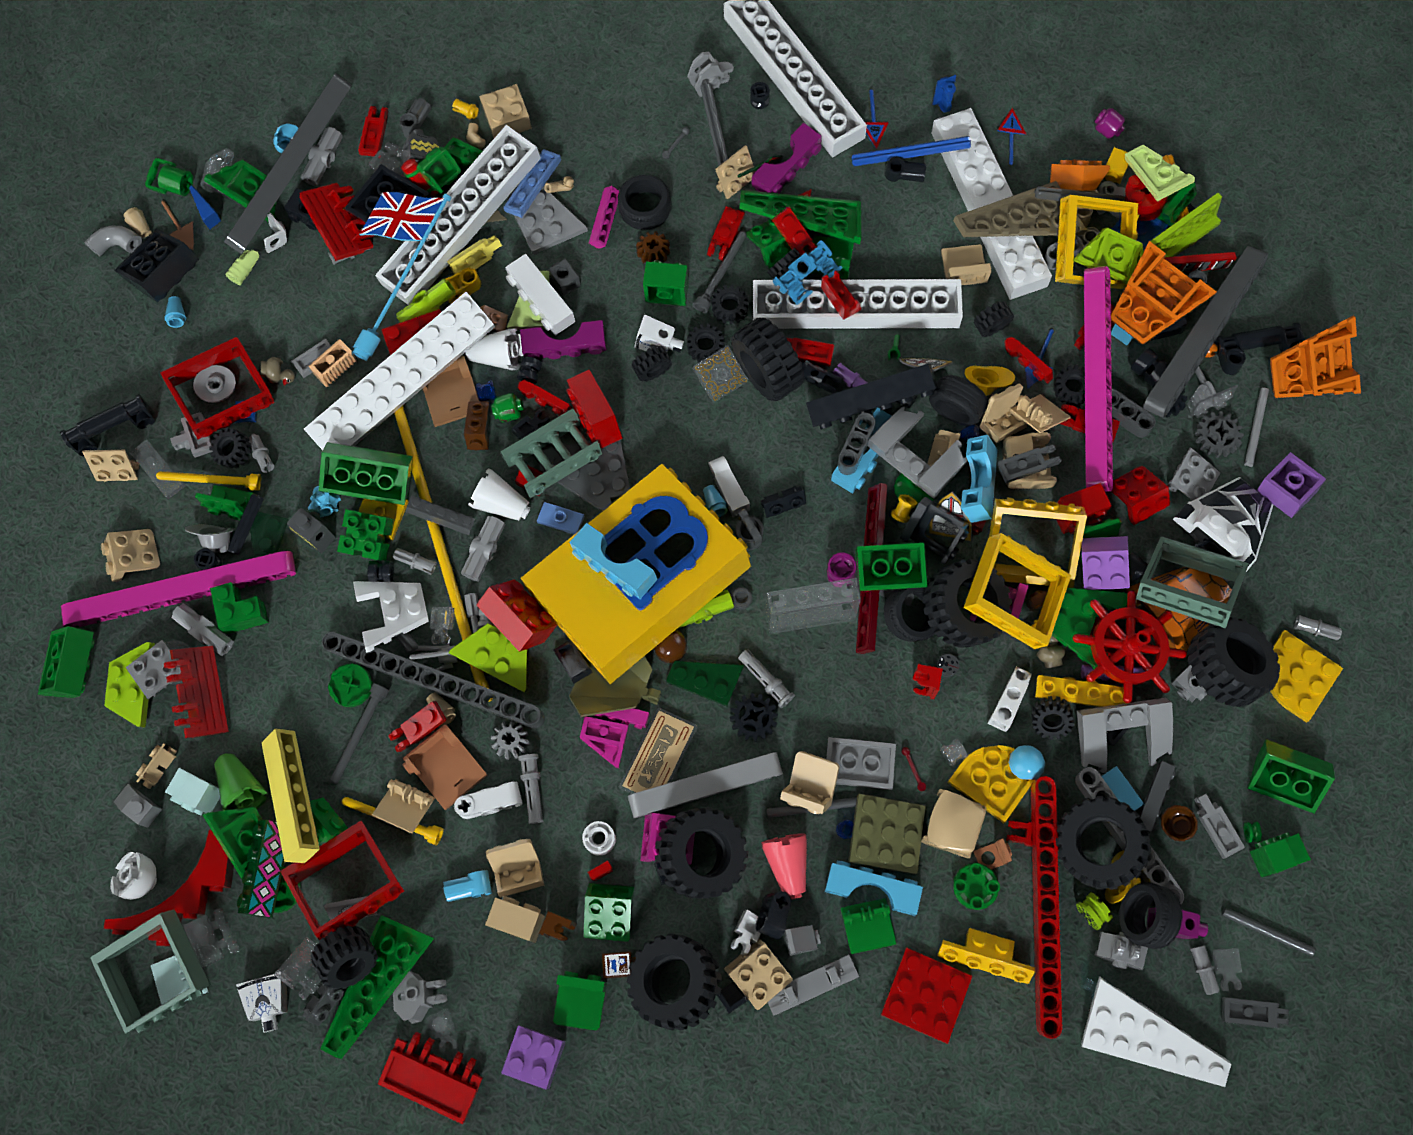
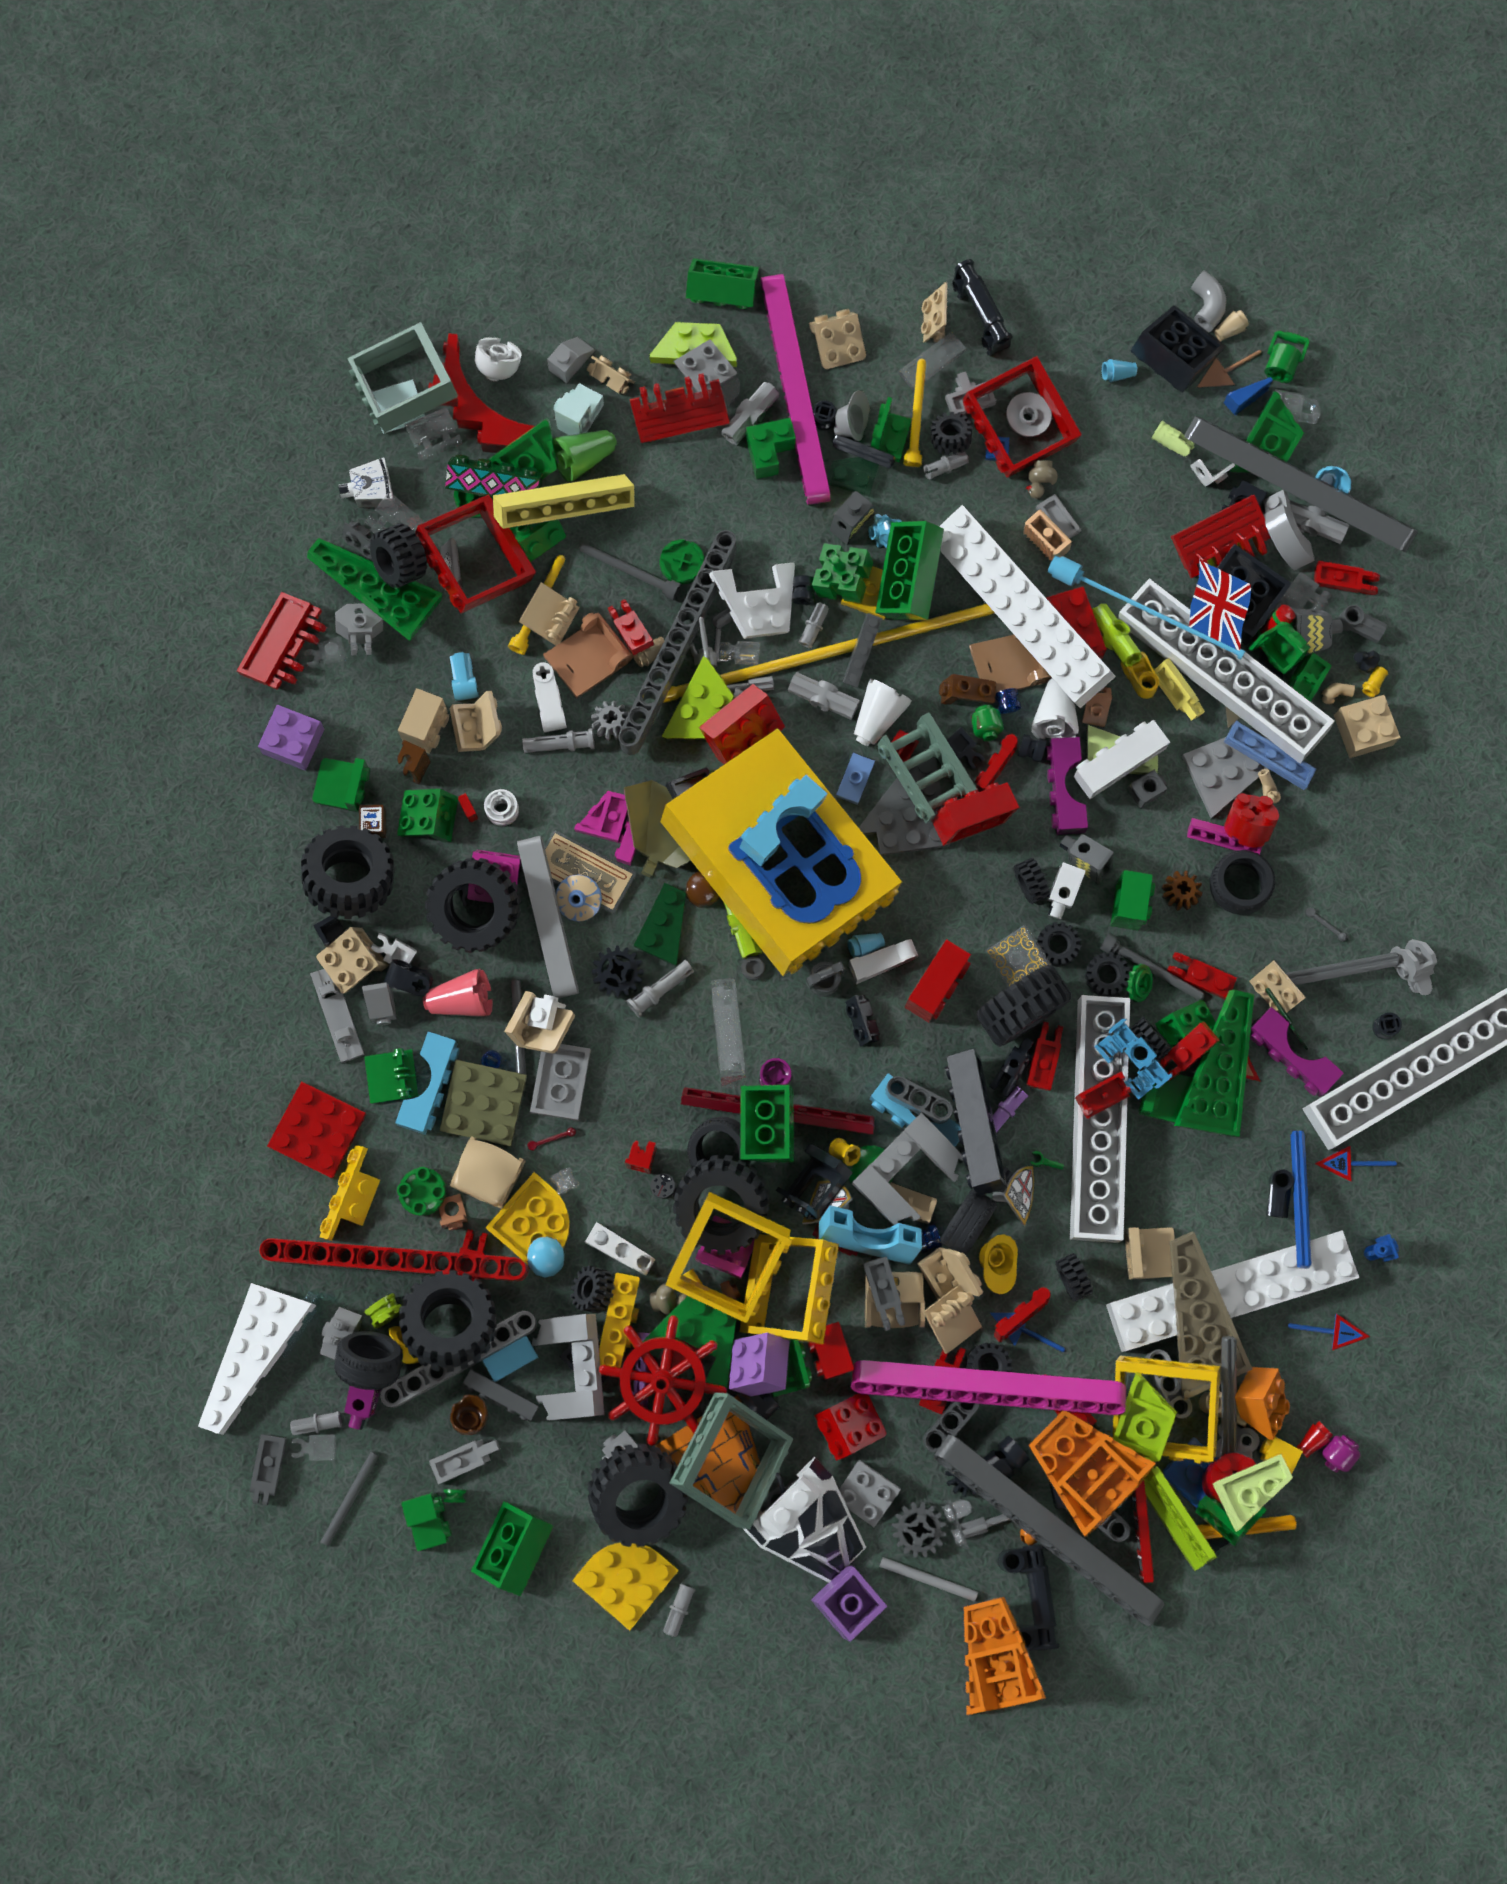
camera: 85 degrees right, 5 degrees up
(331, 172) = (1285, 533): none -> light grey arch
(447, 113) = (1367, 660): none -> black plate
(591, 192) = (1251, 820): none -> red brick
(627, 319) = (1089, 856): none -> dark grey torso
(674, 758) = (589, 896): none -> tan dish
(736, 277) = (1140, 983): none -> green gear
(747, 435) = (939, 981): none -> red brick
(799, 779) = (544, 1012): none -> white bracket
(1100, 142) = (1314, 1439): none -> red cone

